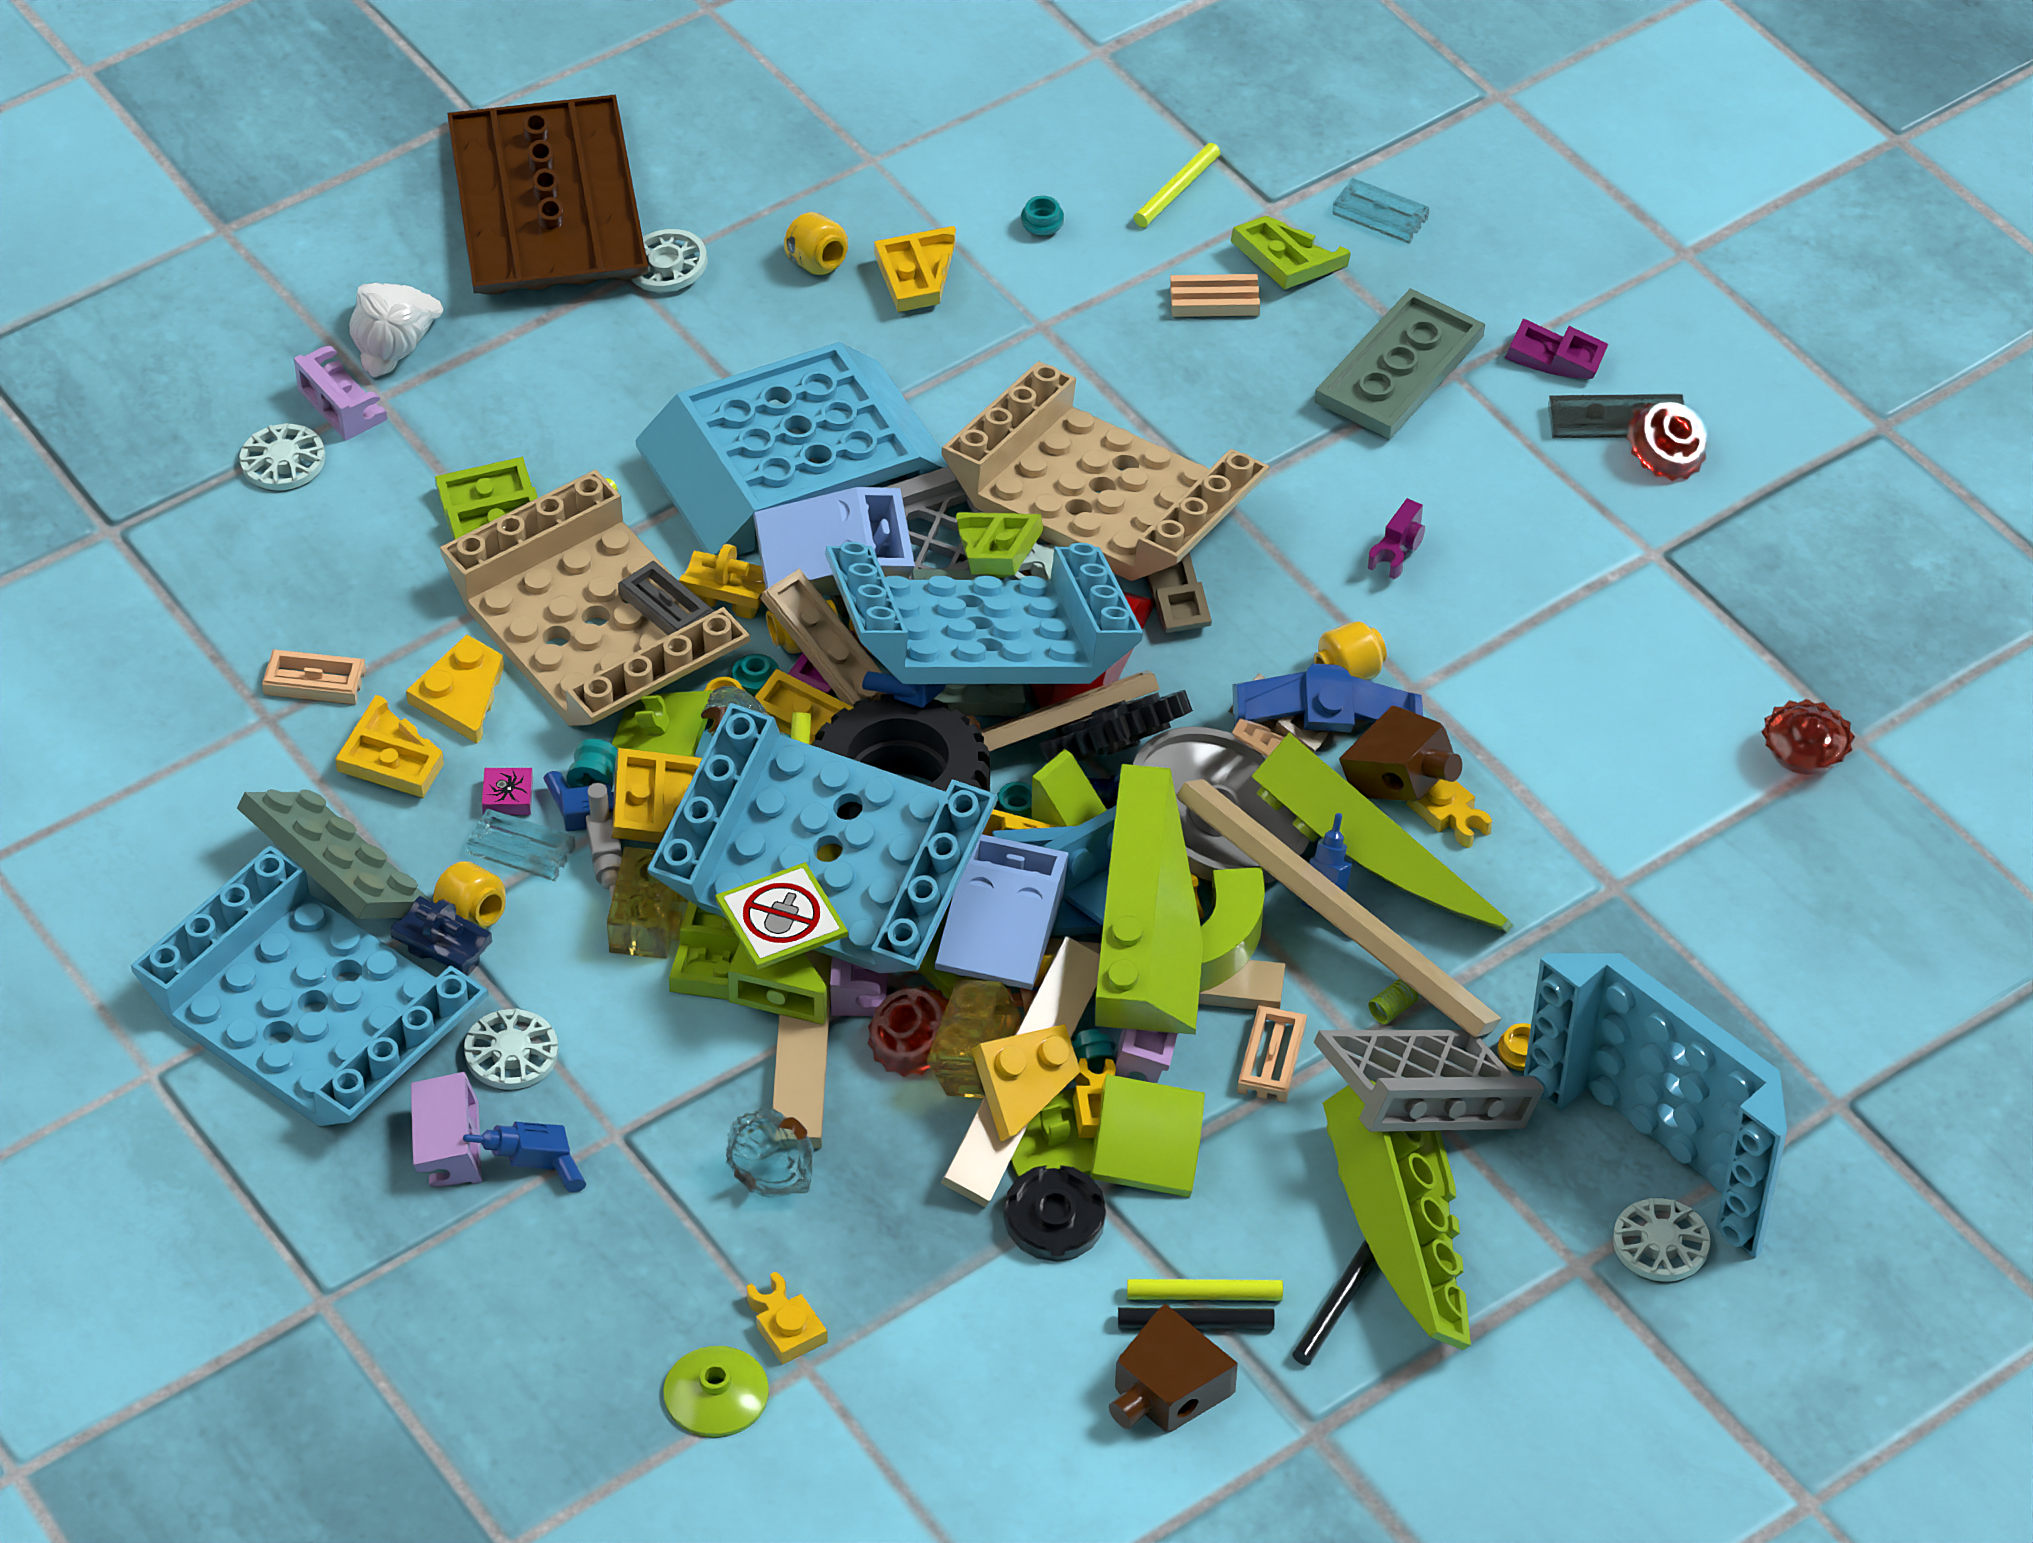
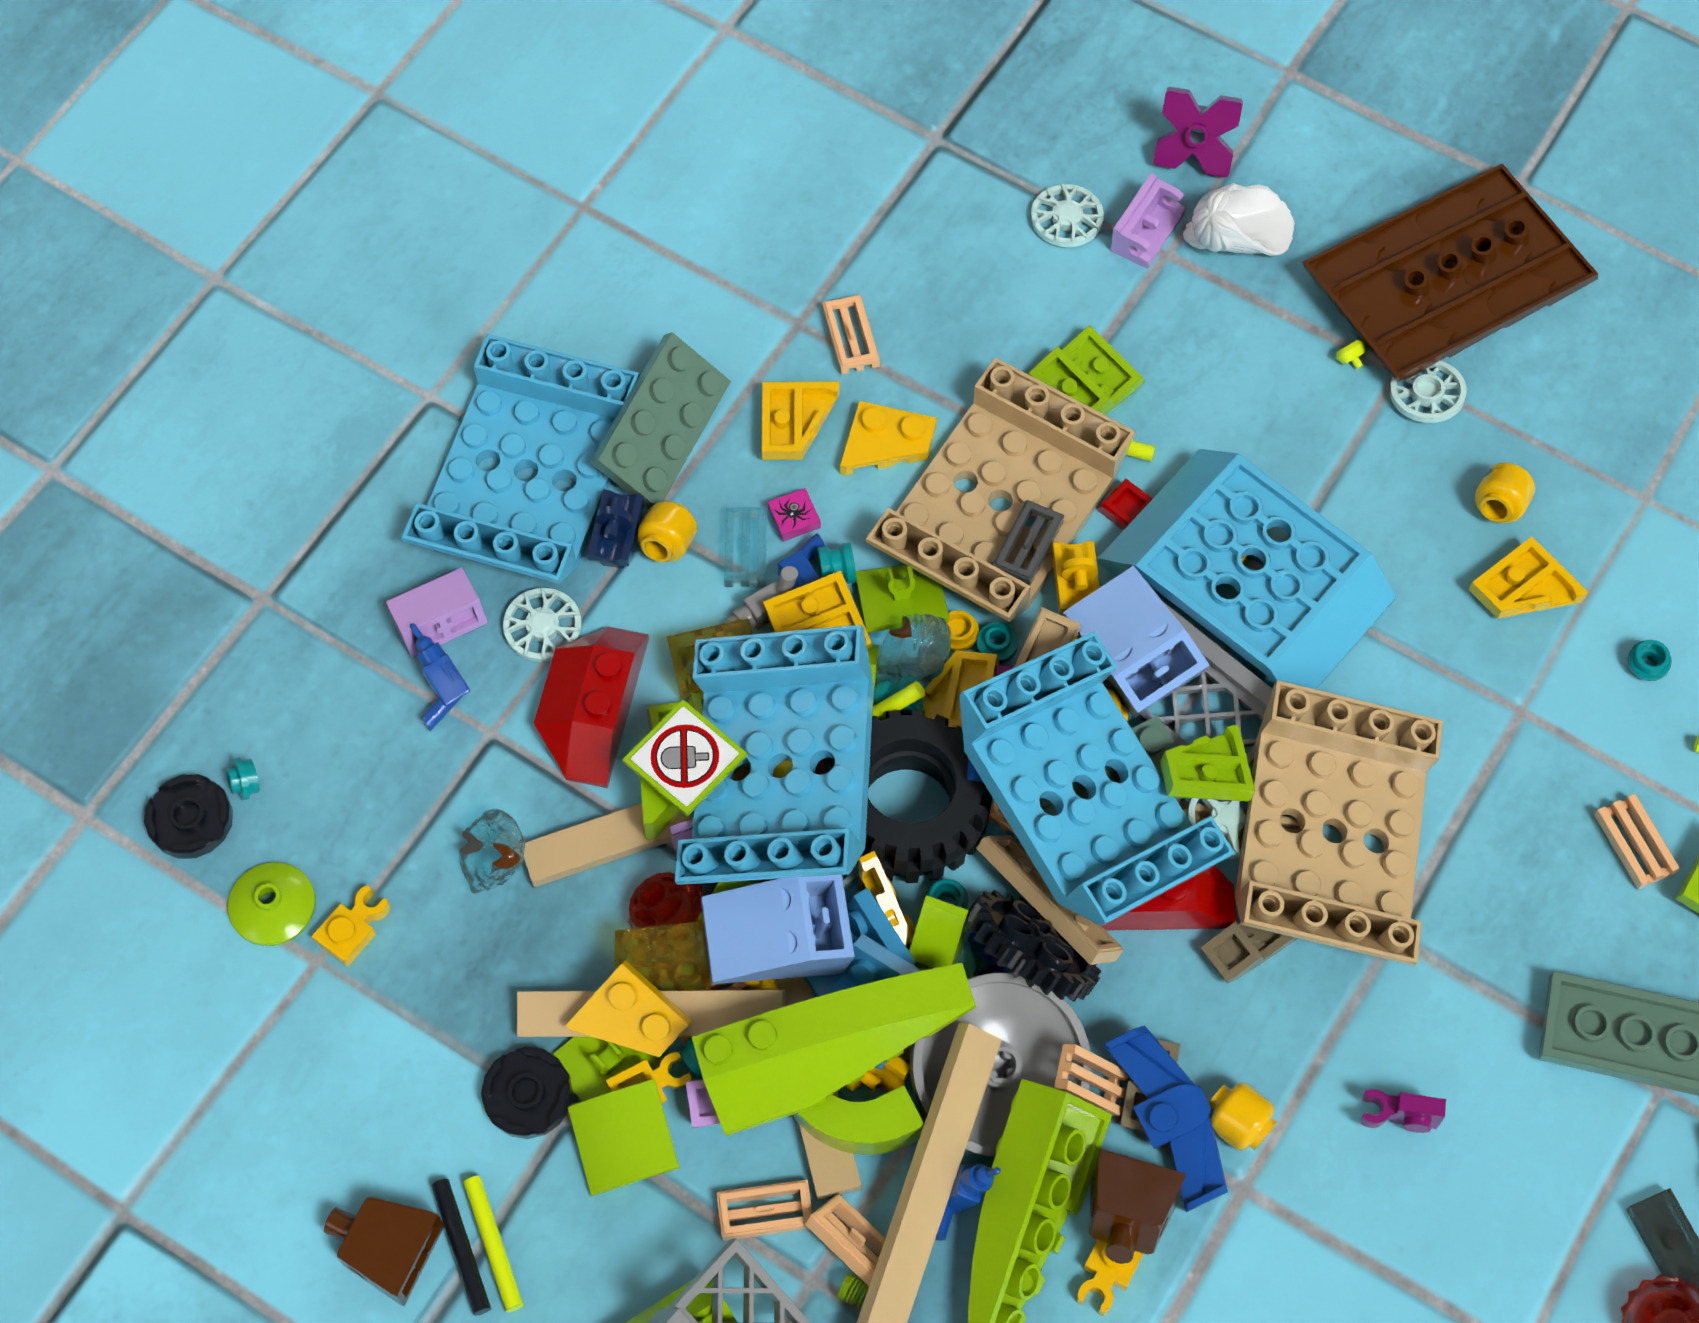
camera: 70 degrees right, 15 degrees up
(265, 308) = (1186, 115): none -> magenta plant
(553, 1366) = (242, 778): none -> teal plate
(567, 1440) = (188, 816): none -> black tile
(589, 299) = (1351, 353): none -> neon yellow rock
(638, 1022) = (589, 702): none -> red wedge
(659, 525) = (1124, 504): none -> red tile
(1338, 985) = (845, 1243): none -> light nougat tile

